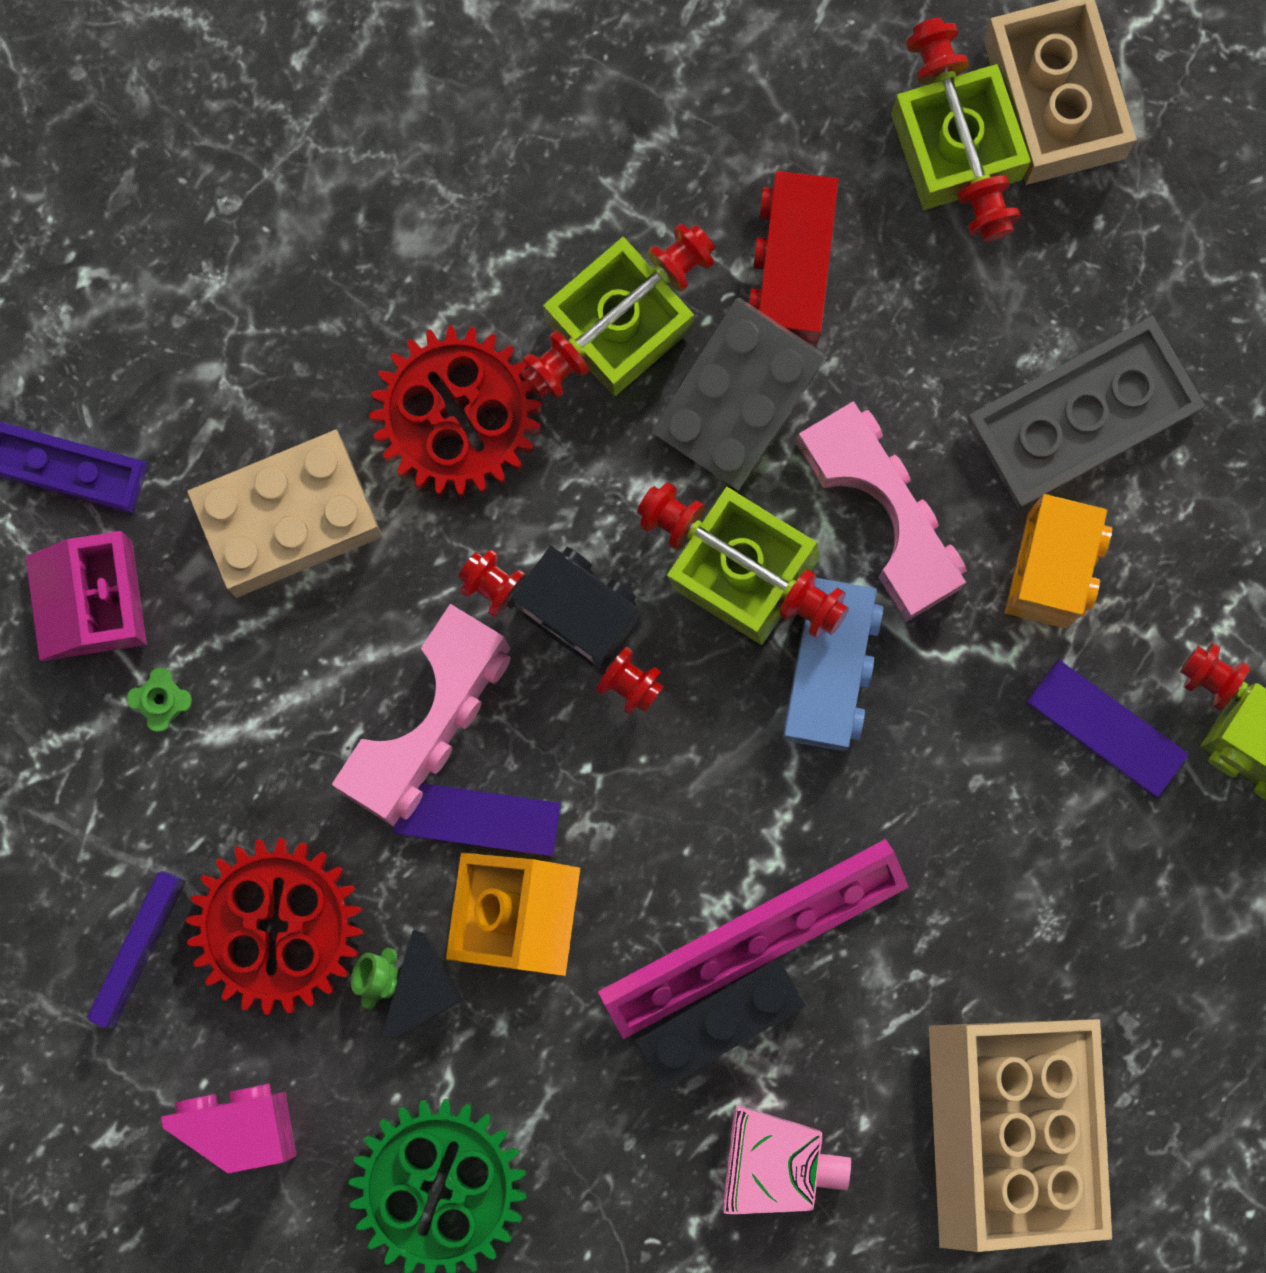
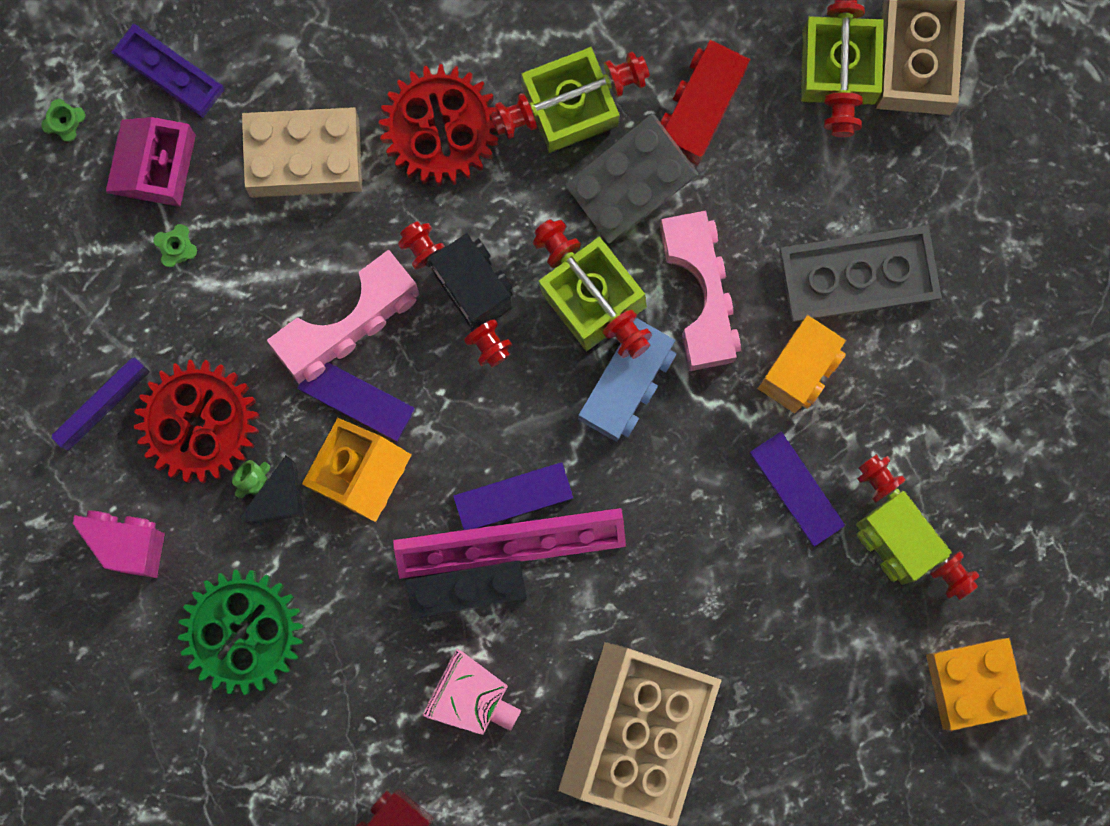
camera: 15 degrees right, 0 degrees up
(735, 875) = (513, 497): none -> dark purple tile

